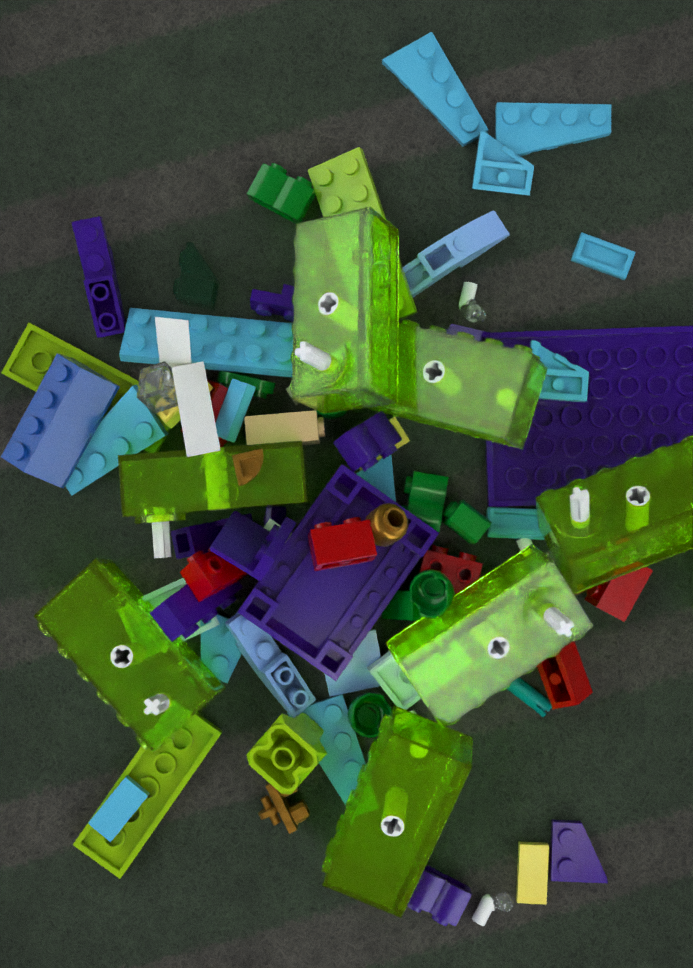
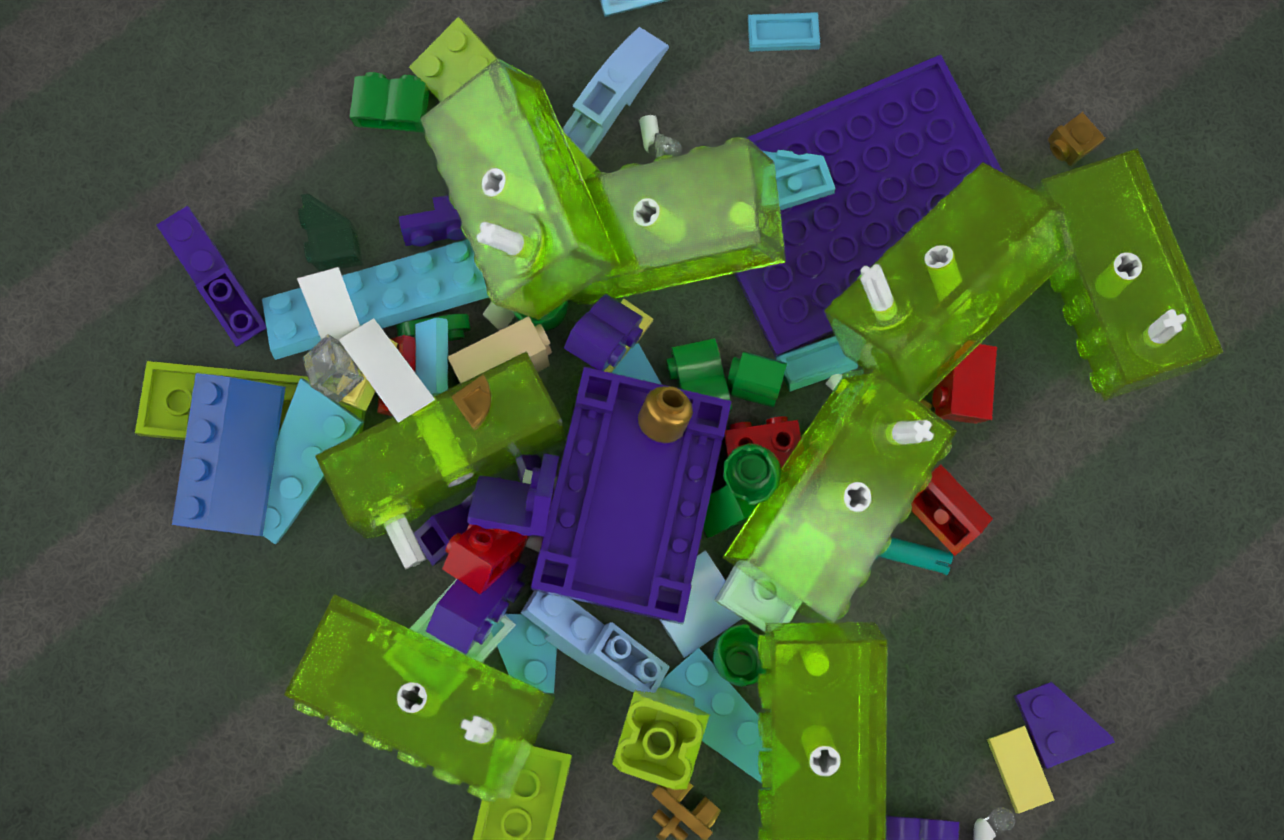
camera: 30 degrees left, 10 degrees down
(341, 544) = (623, 456): red brick -> none

